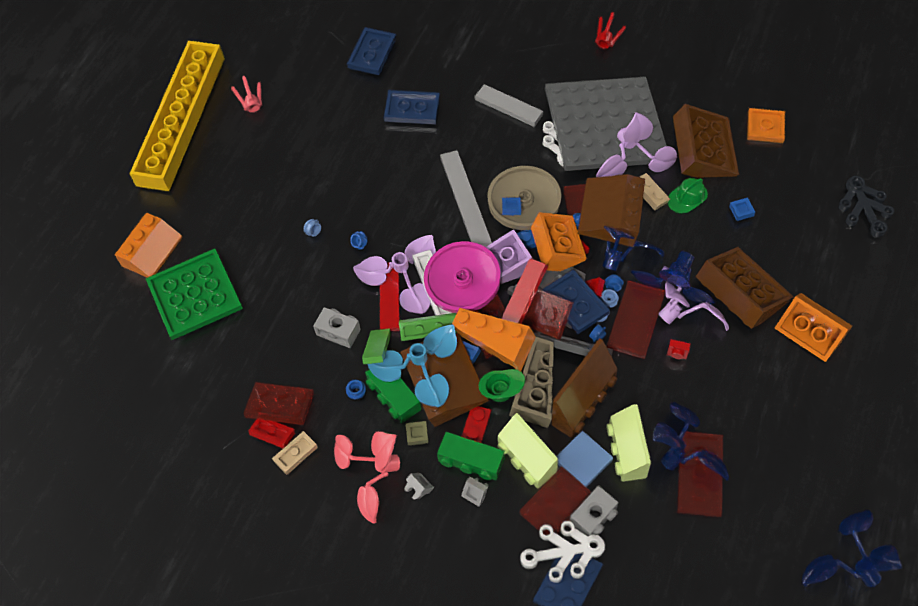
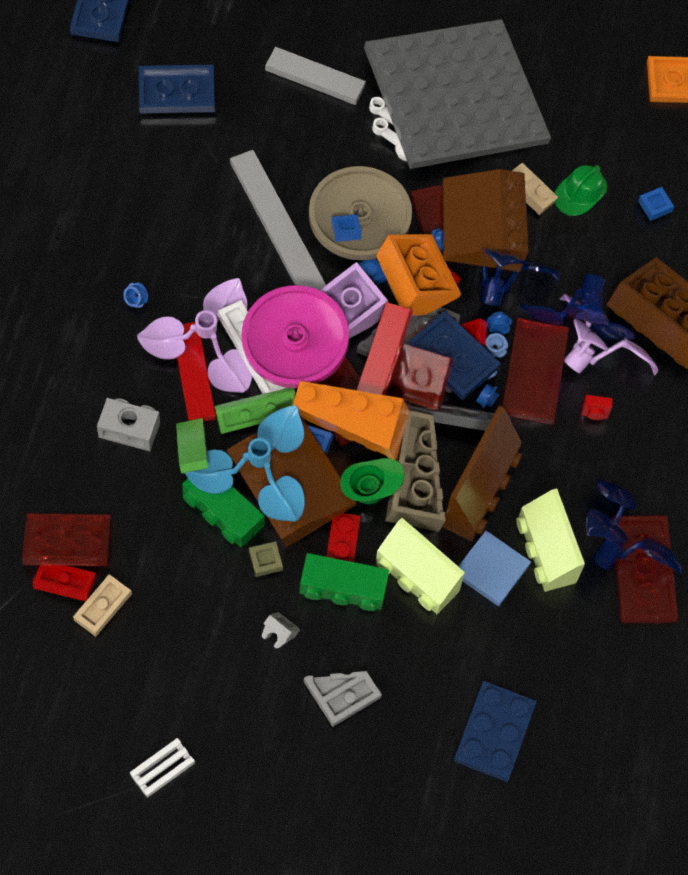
camera: 20 degrees left, 5 degrees up
(311, 570) = (182, 752): none -> white tile
(312, 227) = (64, 282): medium blue plate -> none
(353, 385) = (168, 501): blue plate -> none
(385, 462) = (232, 585): coral plant -> none
(457, 539) = (342, 694): none -> light grey wing
(474, 491) = (356, 627): light grey tile -> none
(555, 502) = (465, 631): clear red plate -> none
(565, 551) = (487, 690): white plant -> none
(597, 501) = (523, 622): light grey brick -> none
(638, 129) = (510, 106): lavender plant -> none
(704, 143) = (594, 112): reddish brown slope -> none

